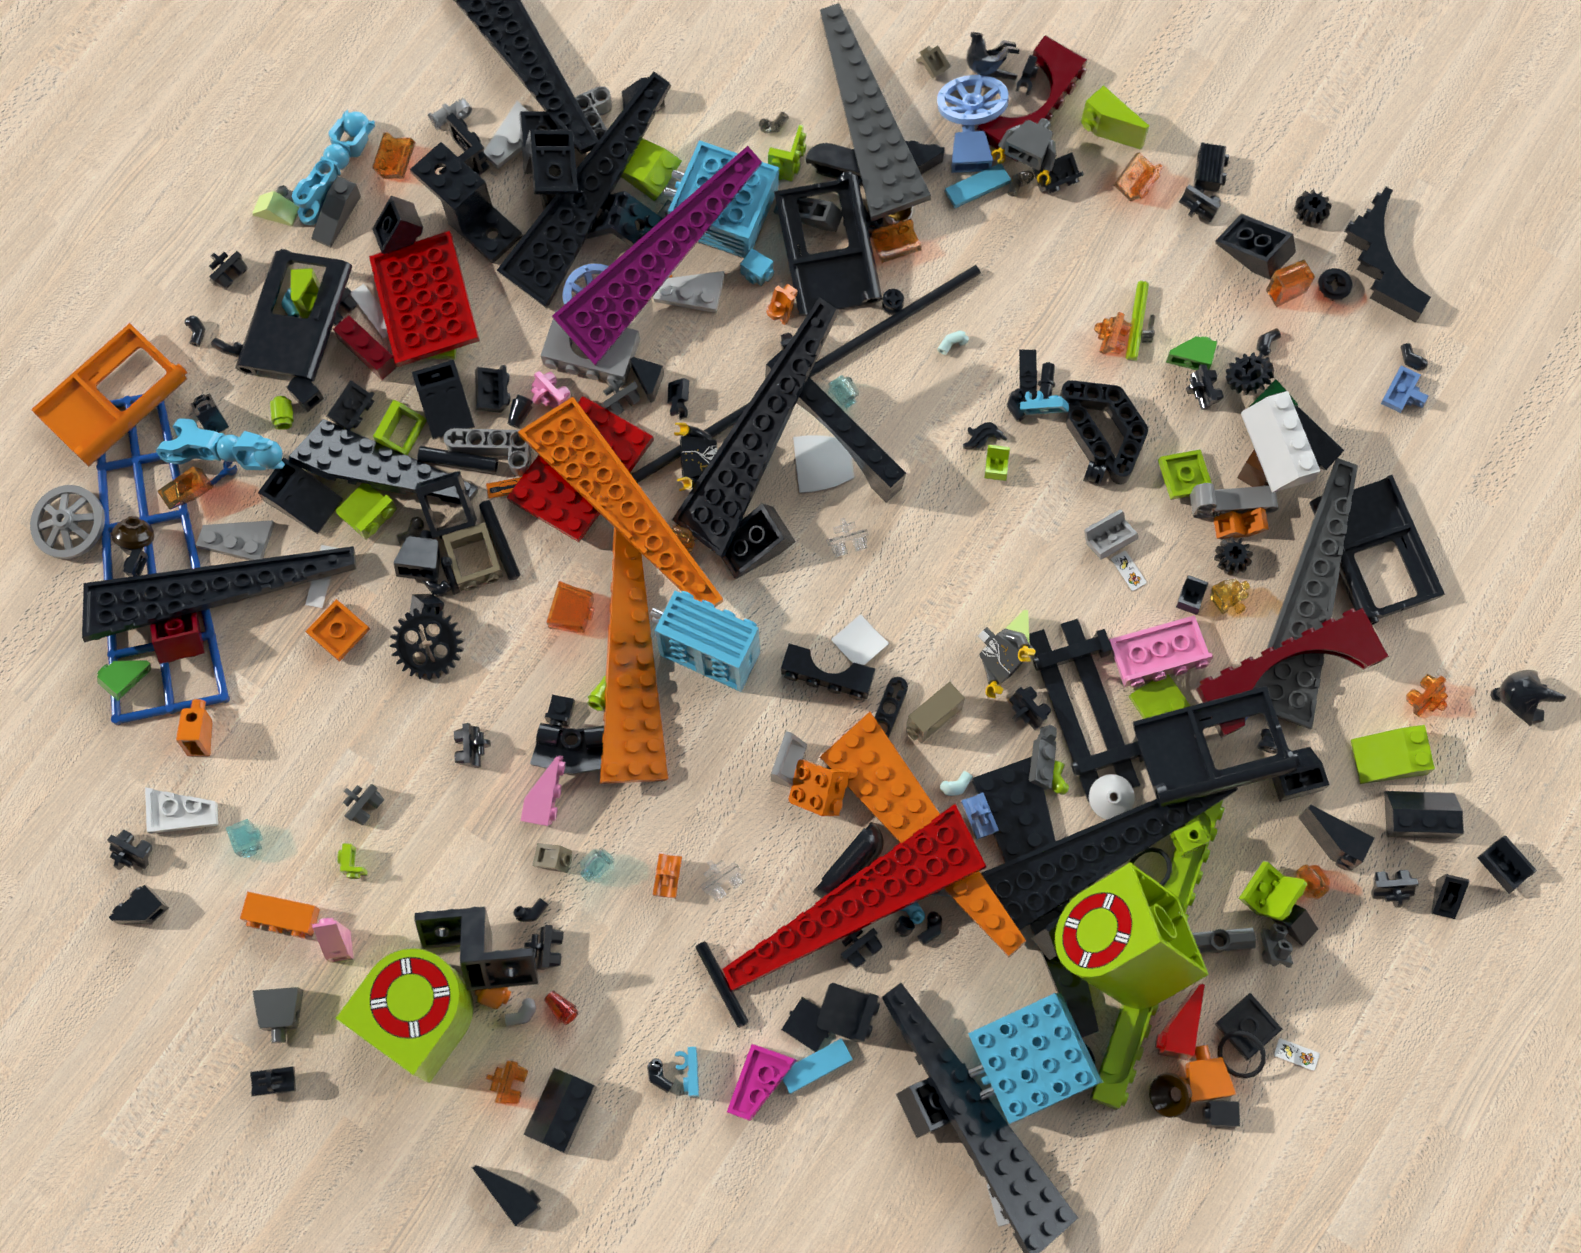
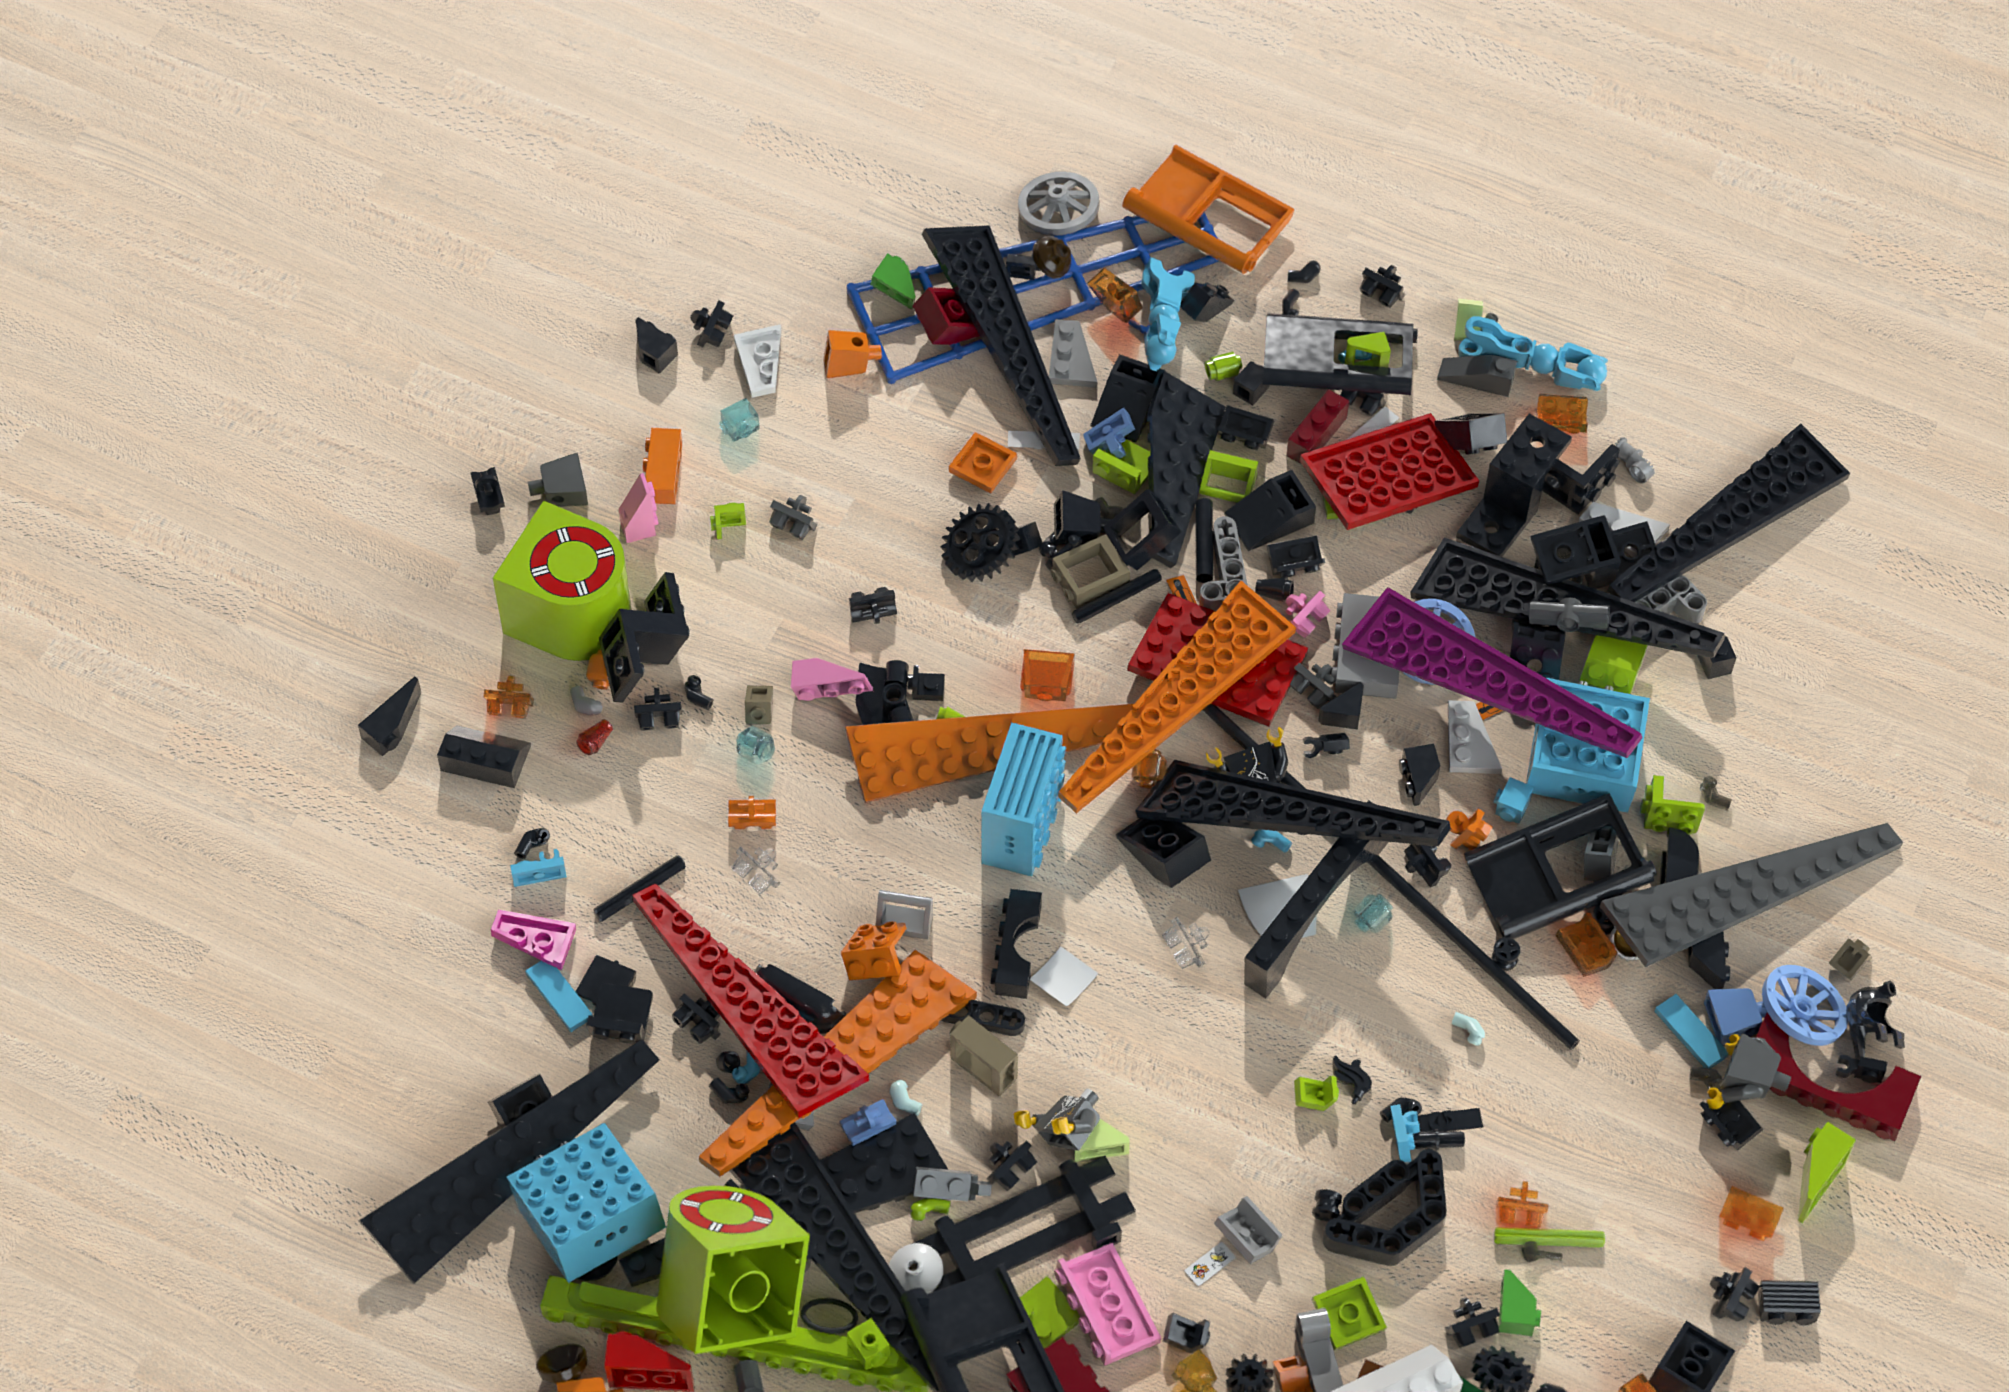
camera: 80 degrees right, 15 degrees down
(335, 516) = (1110, 434): none -> medium blue hinge
(608, 183) = (1569, 614): none -> dark grey piece
(718, 331) = (1421, 770): none -> black slope

